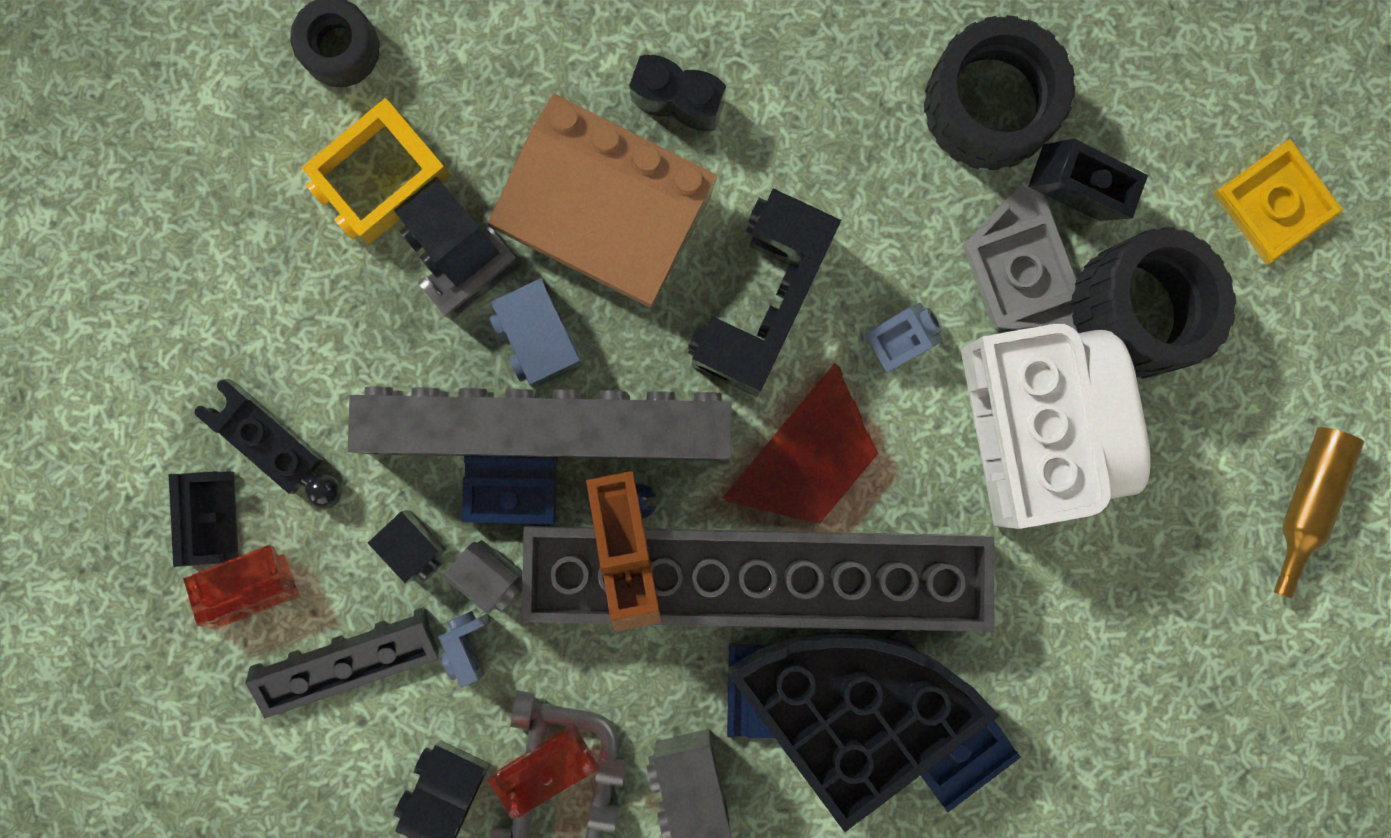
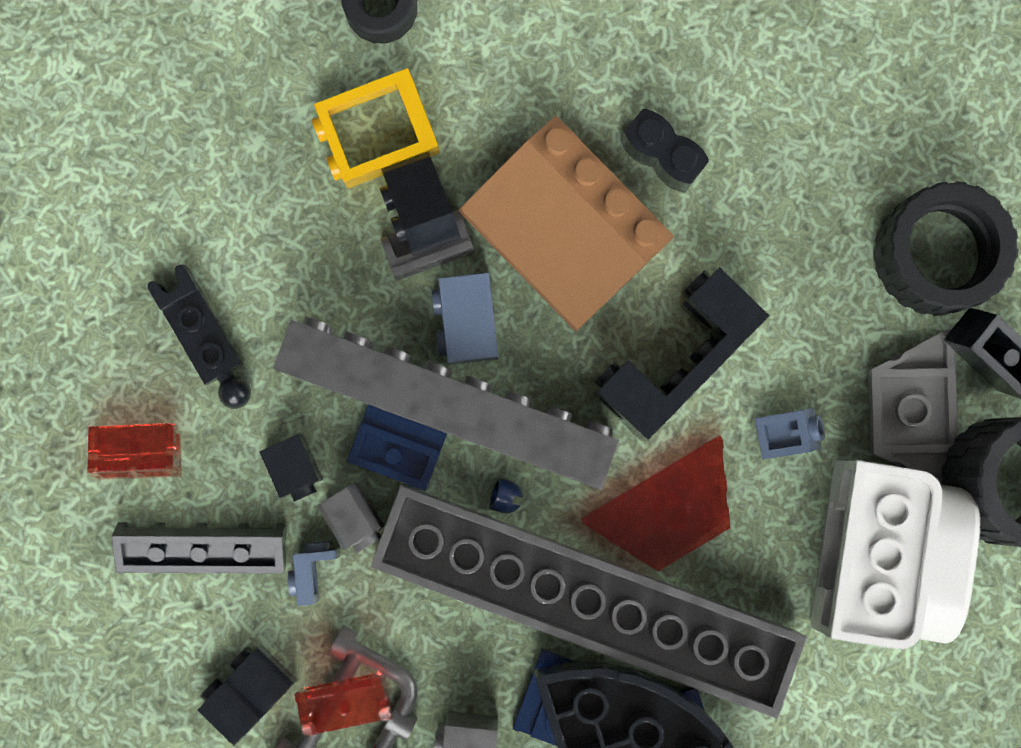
camera: 15 degrees right, 0 degrees up
(203, 518) = (122, 379): black hinge -> none
(623, 551) = (481, 537): dark orange slope -> none

